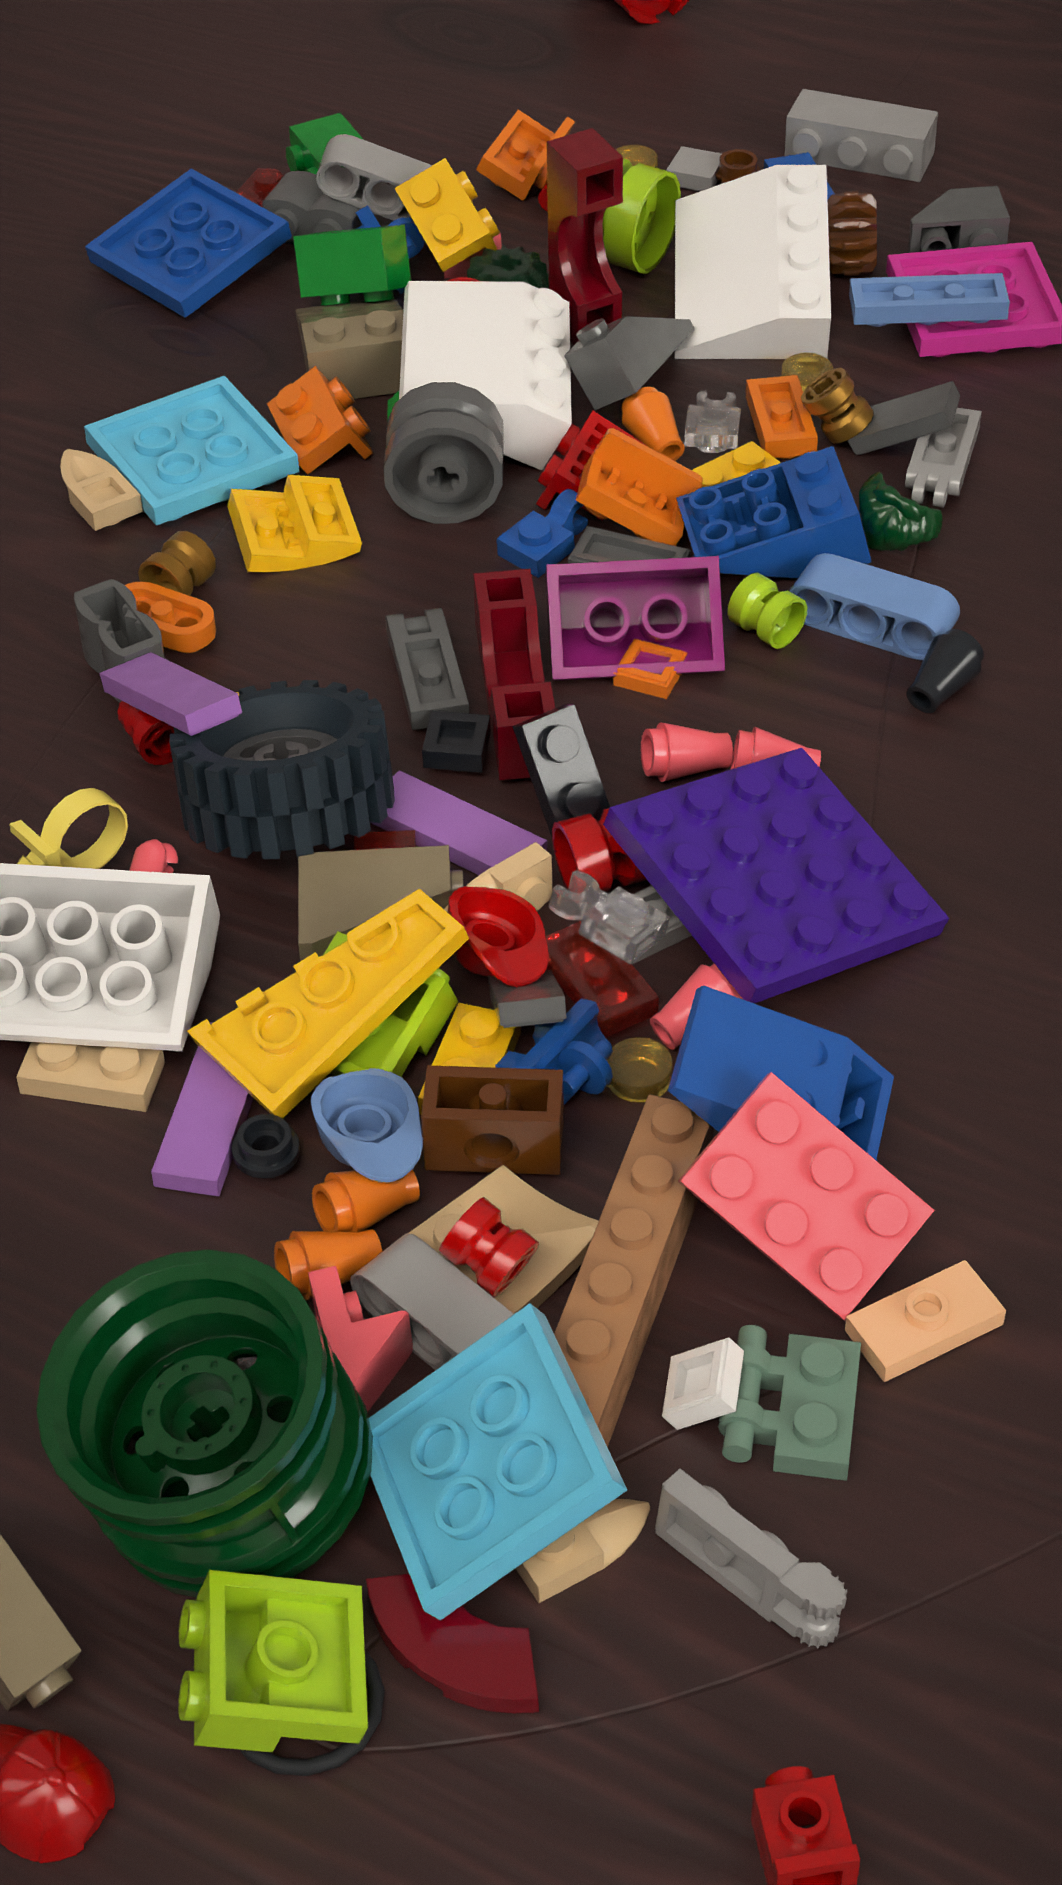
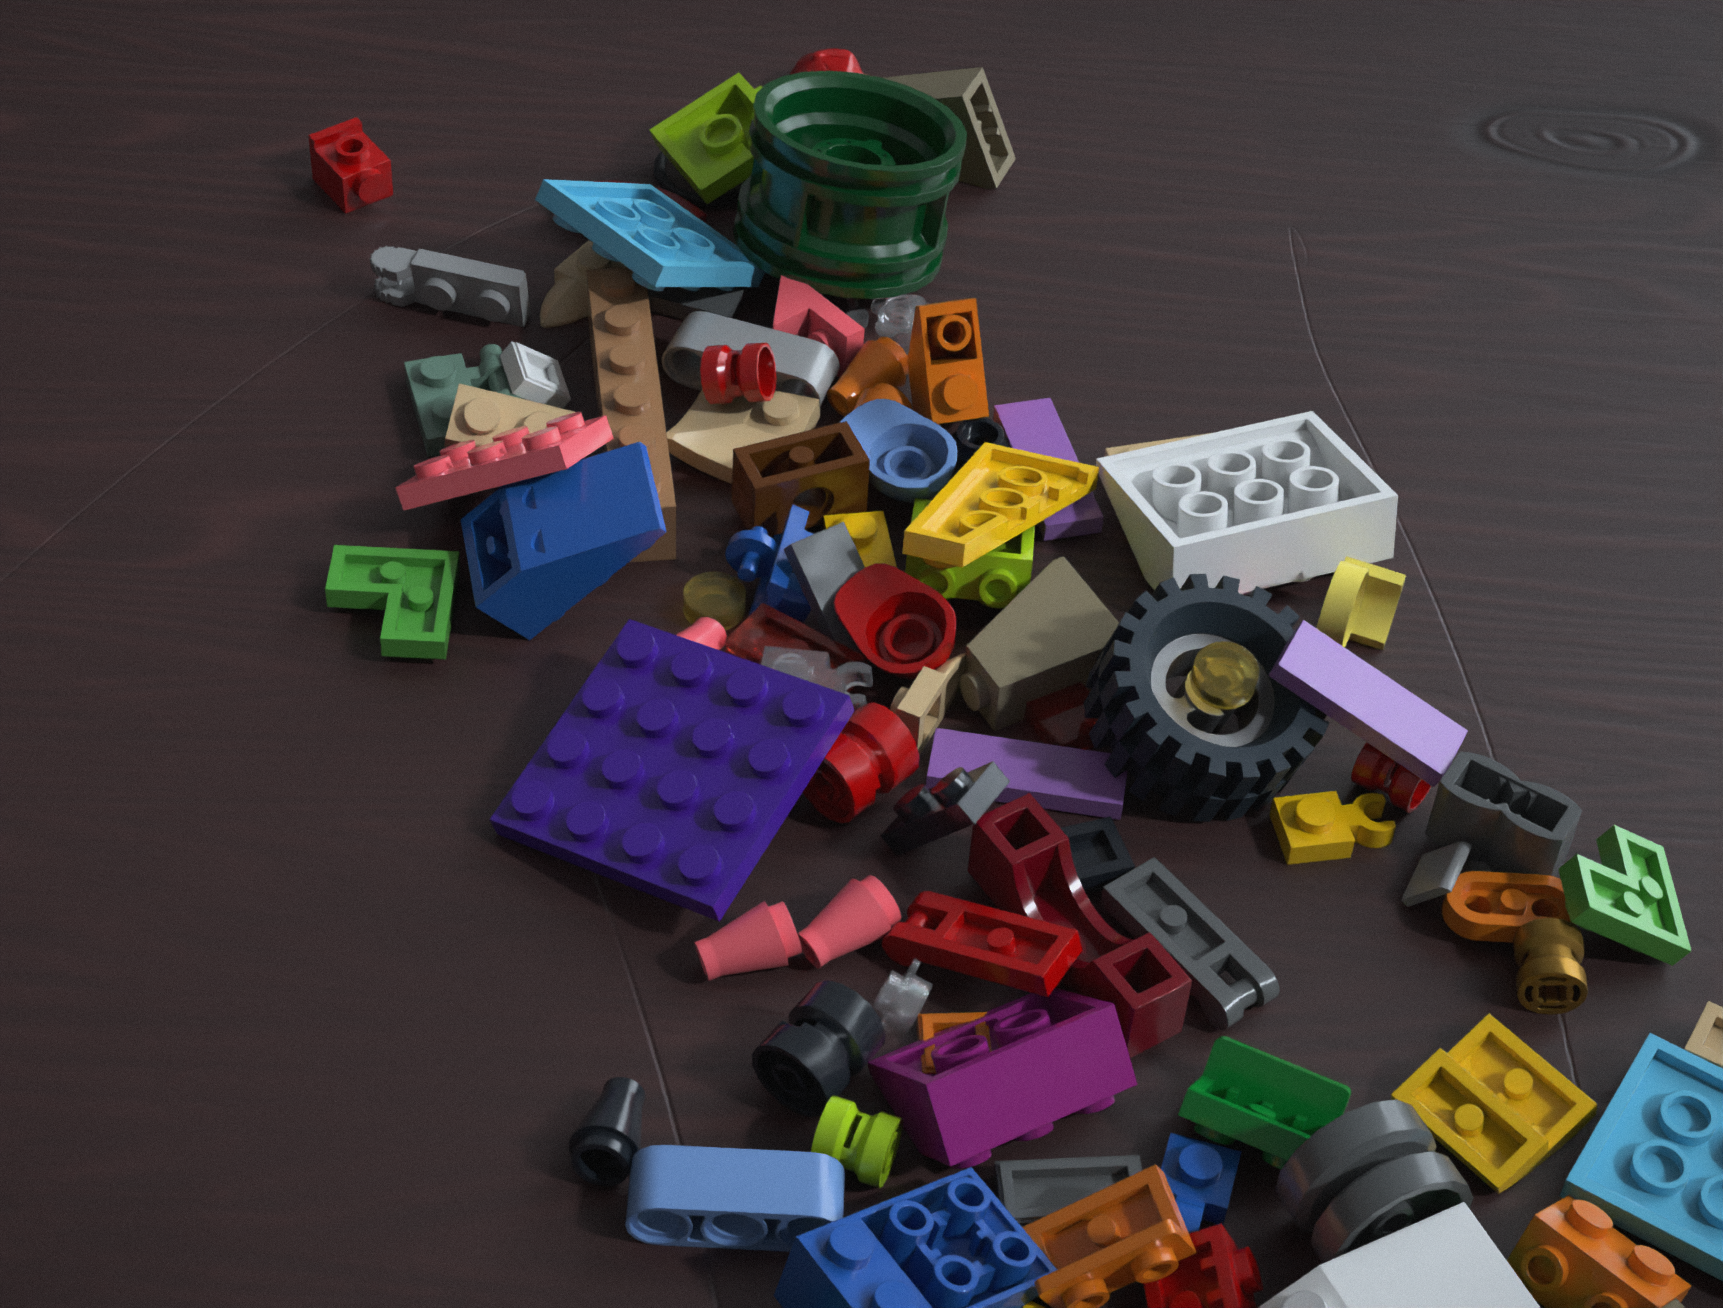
camera: 150 degrees right, 0 degrees up
(52, 599) = (1627, 896): none -> bright green plate
(197, 650) = (1436, 873): none -> light grey piece
(258, 1177) = (947, 362): none -> orange slope
(271, 737) = (1224, 675): none -> clear yellow tile
(466, 540) = (1261, 1101): none -> green bracket
(594, 684) = (983, 943): none -> red plate
(677, 686) = (902, 998): none -> clear plate
(764, 661) = (823, 1044): none -> black wheel
(764, 1306) = (485, 413): none -> tan plate
(925, 1320) = (367, 490): light nougat plate -> none
(947, 1171) = (409, 584): none -> bright green plate

